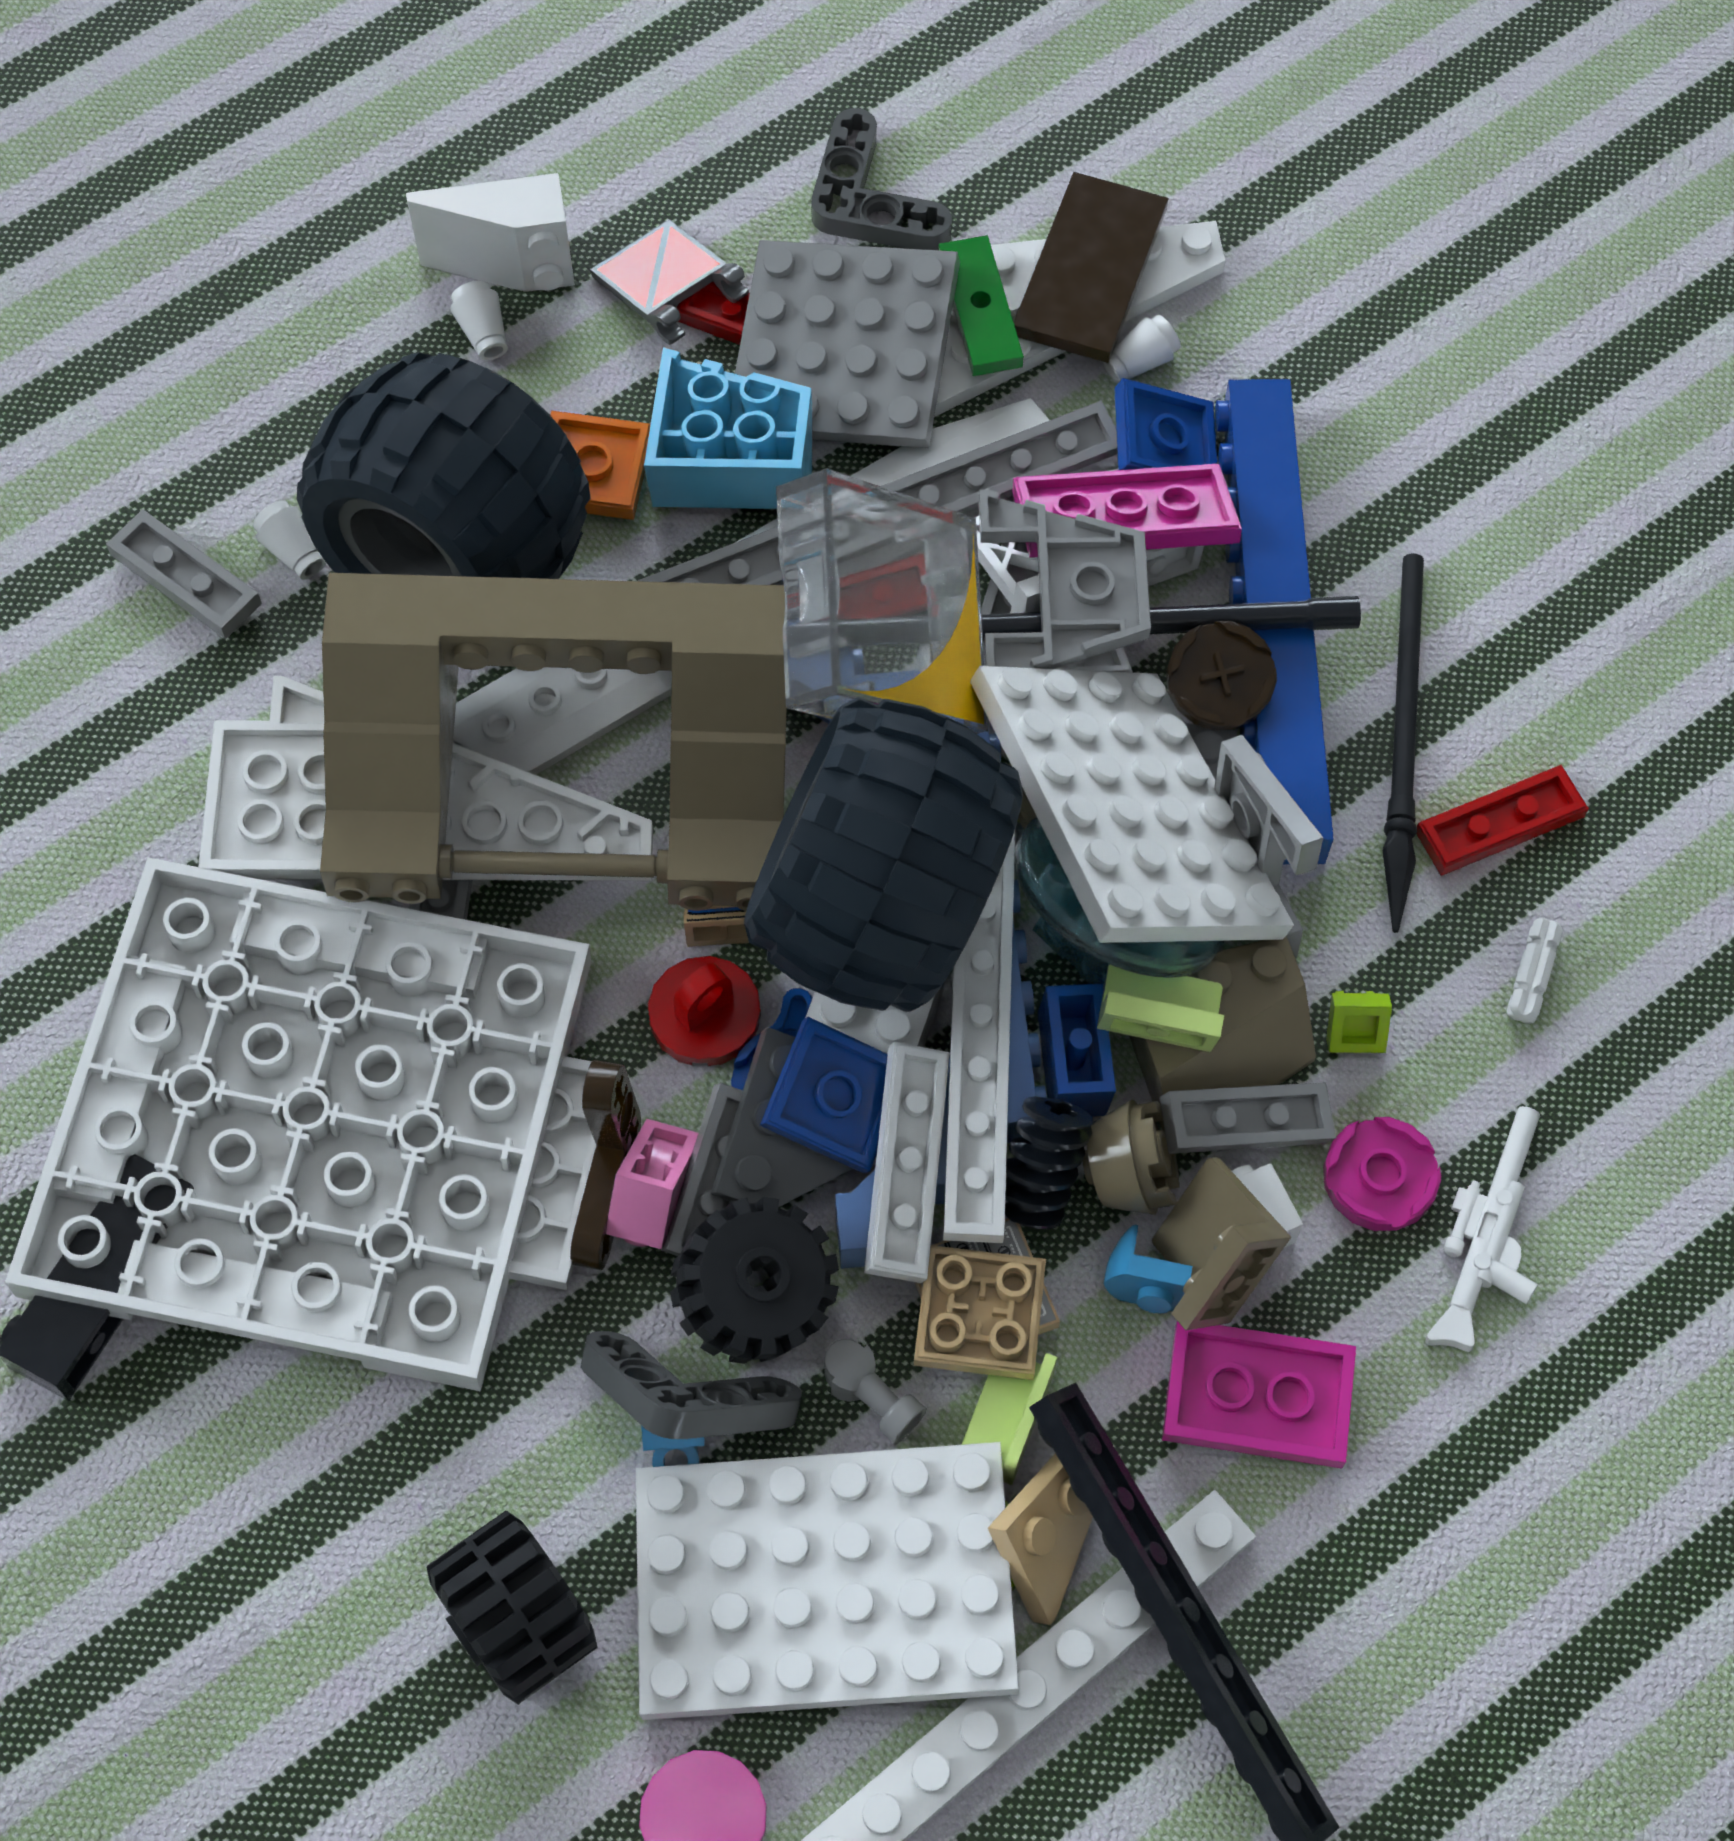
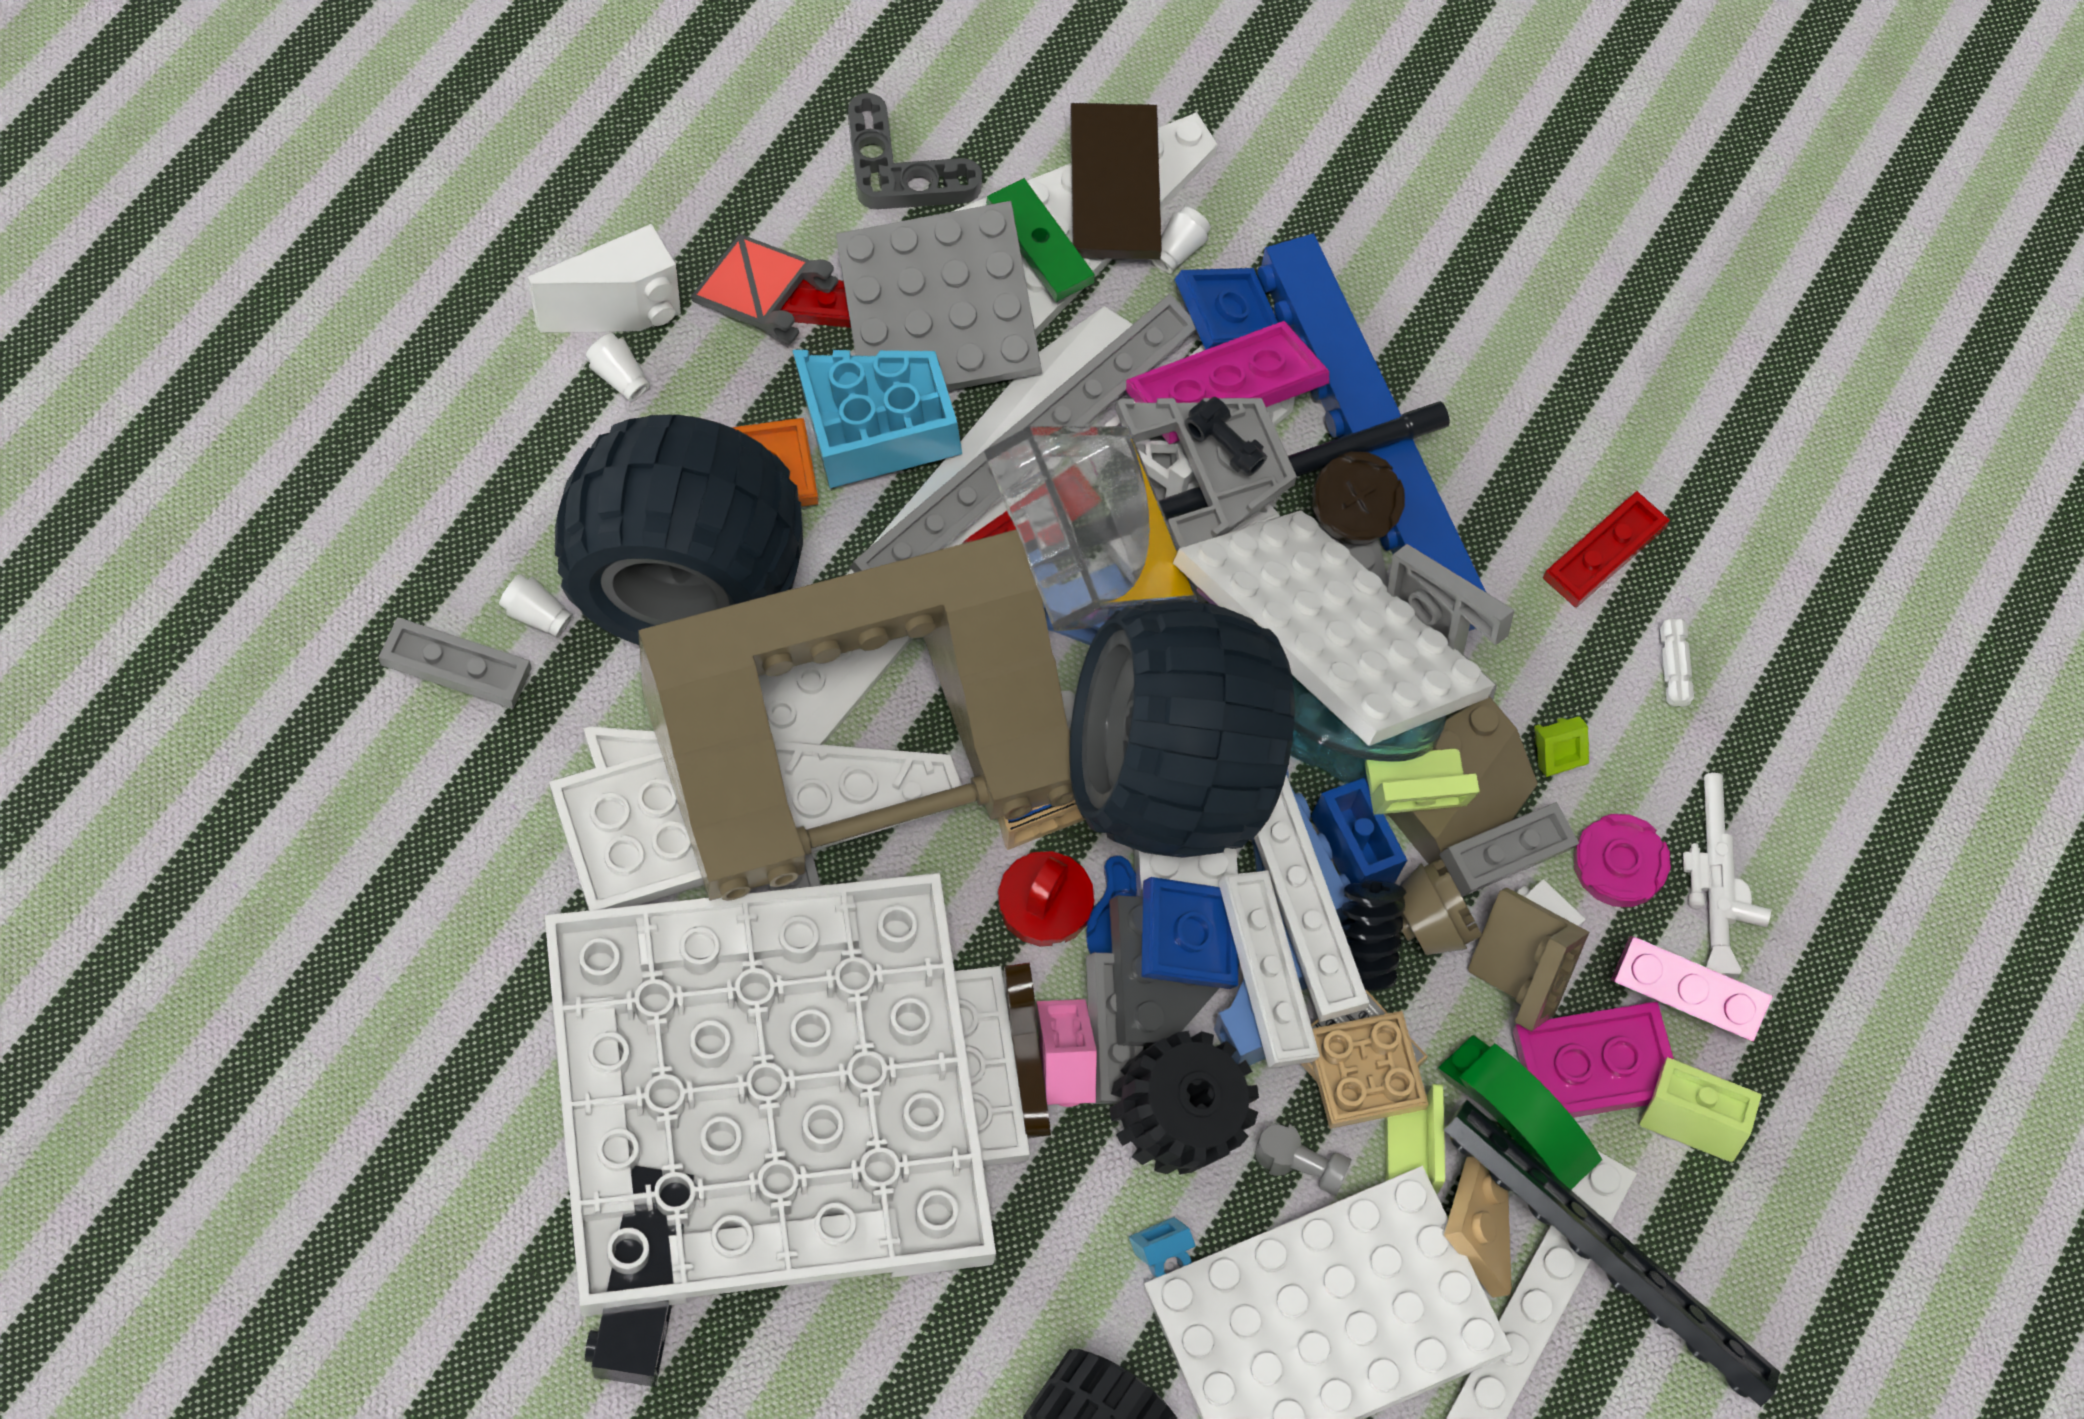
camera: 25 degrees left, 0 degrees up
(686, 1409) = (1156, 1222): dark grey beam -> none
(1071, 537) = (1210, 419): none -> black bar
(1144, 1280) = (1479, 1003): dark azure plate -> none
(1144, 1421) = (1522, 1108): none -> green arch
(1359, 1487) = (1701, 1110): none -> yellowish green panel
(1400, 824) = (1527, 562): black piece -> none
(1400, 1343) = (1691, 988): none -> brick

